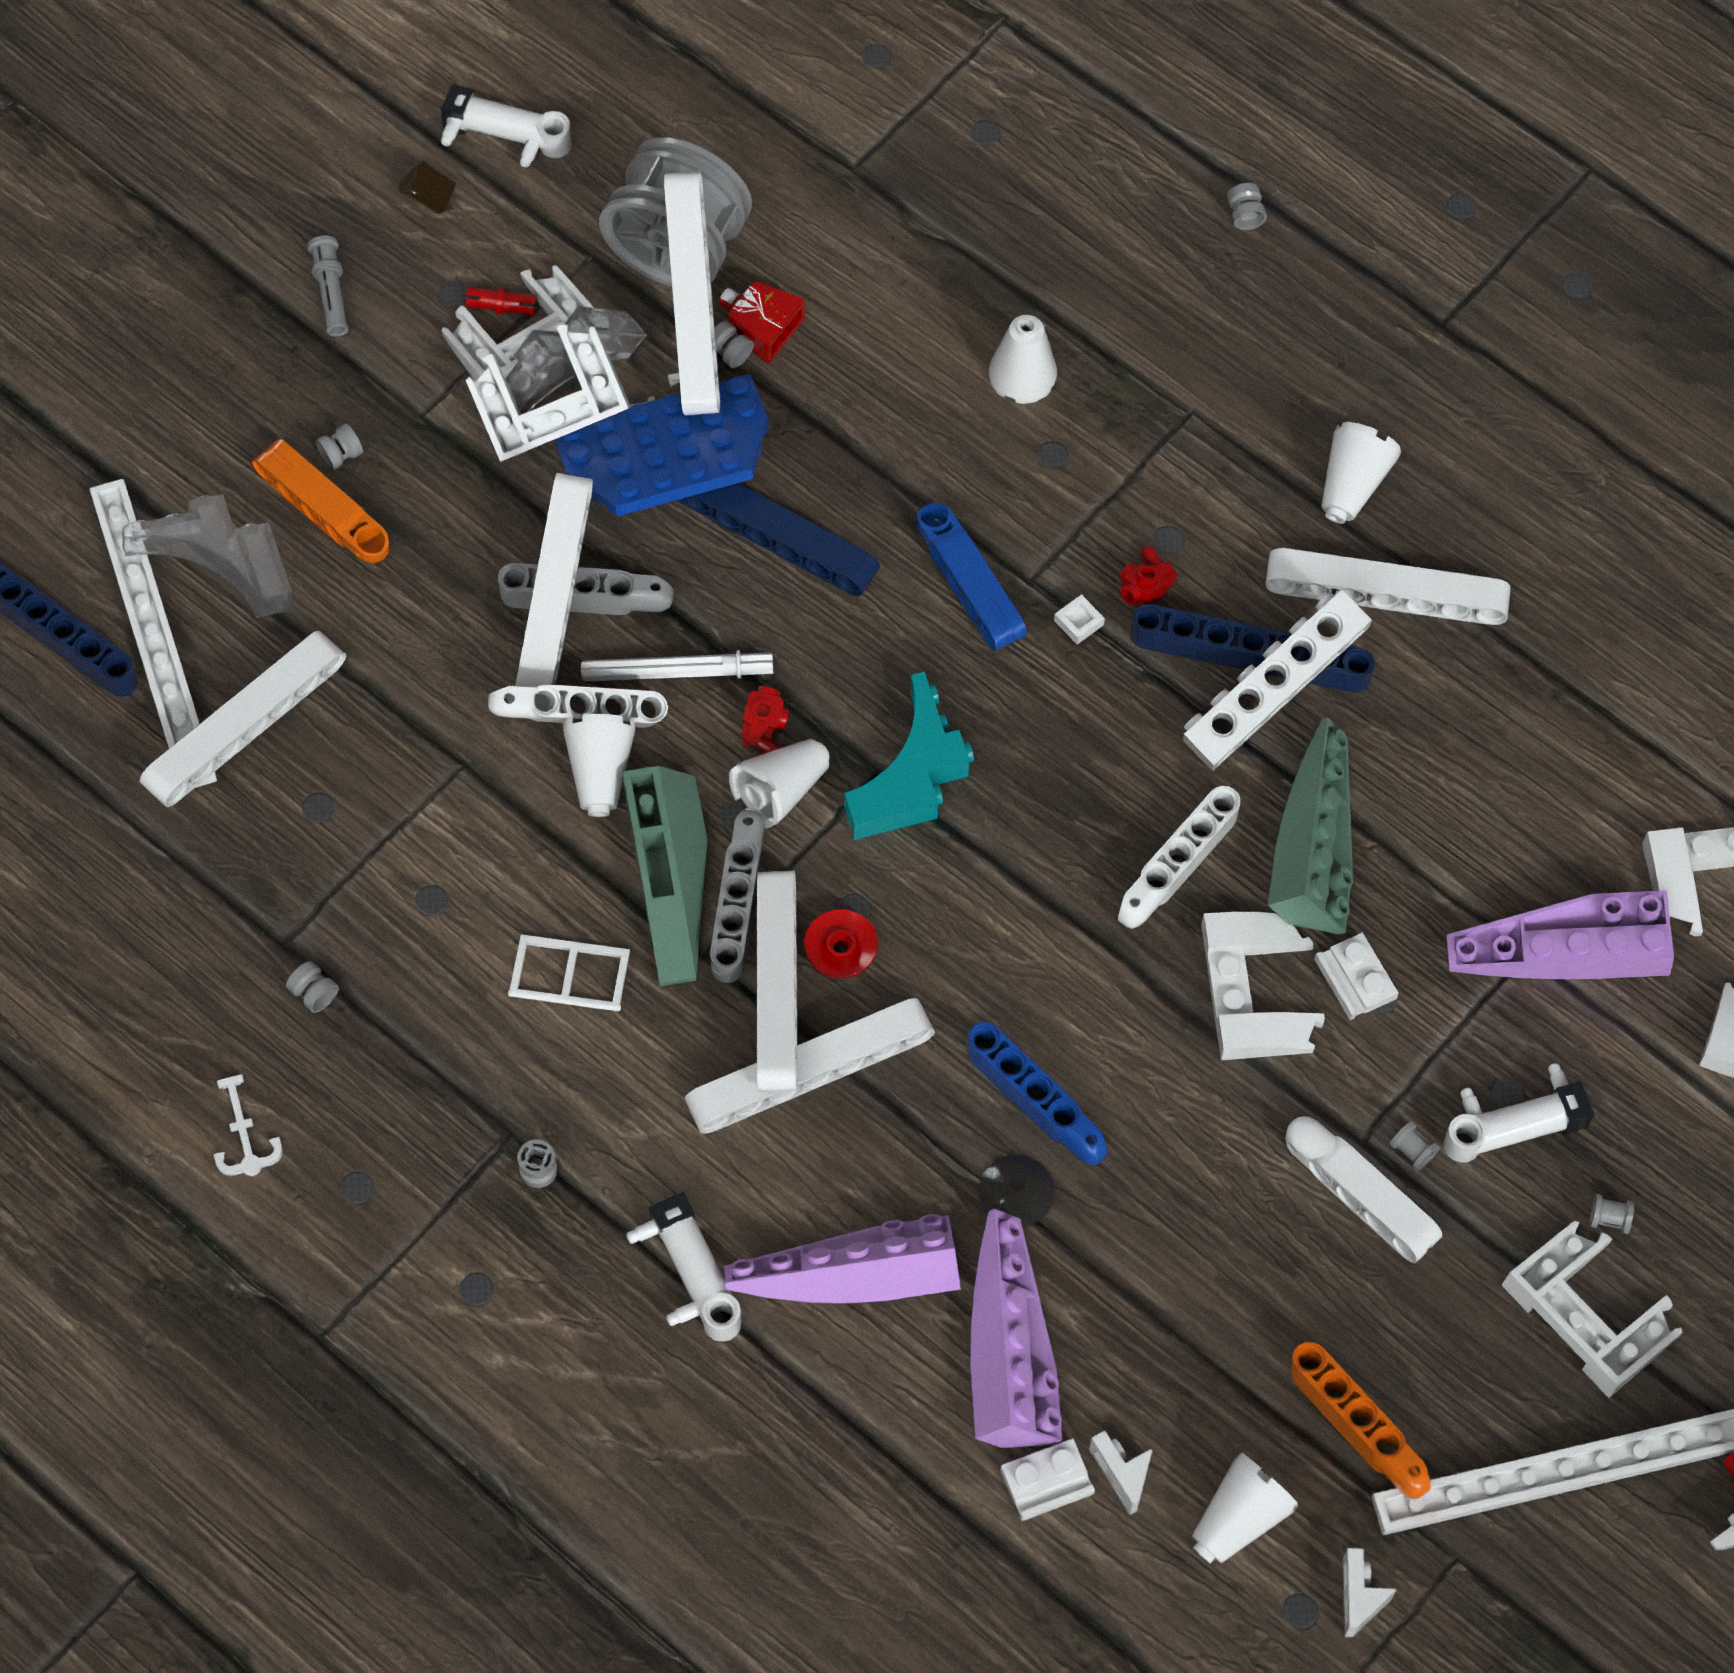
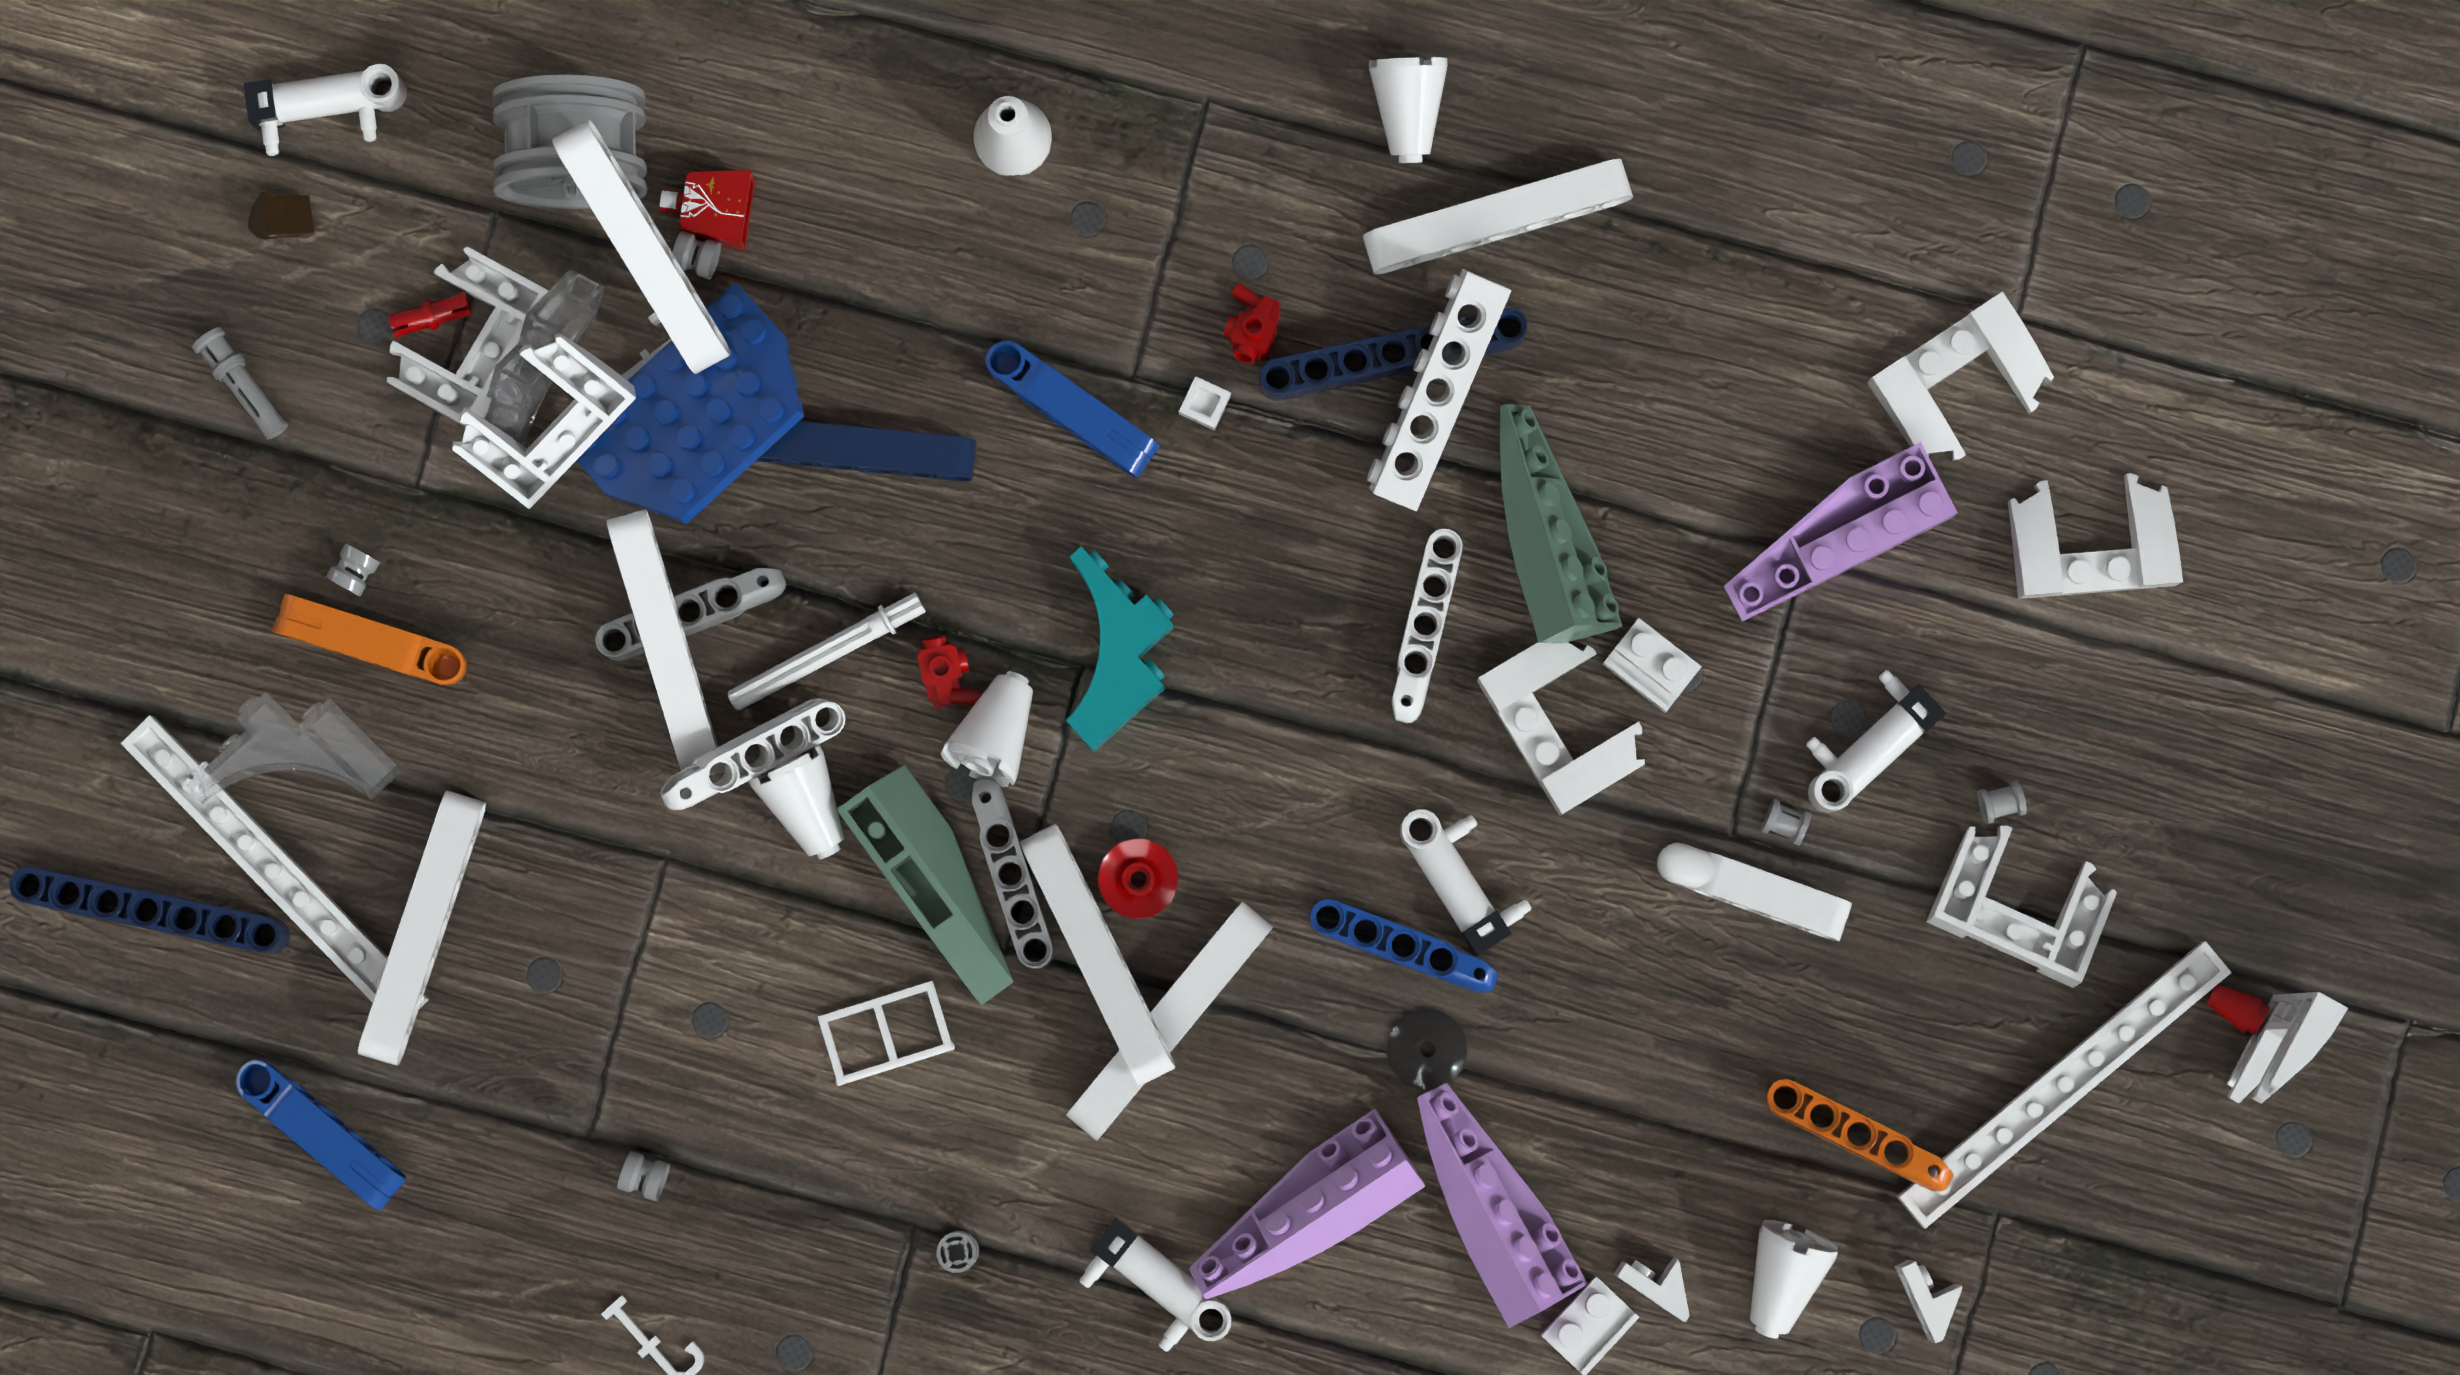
camera: 25 degrees left, 20 degrees up
(73, 836) = (320, 1132): none -> blue piece
(1111, 1105) = (1456, 885): none -> white piece

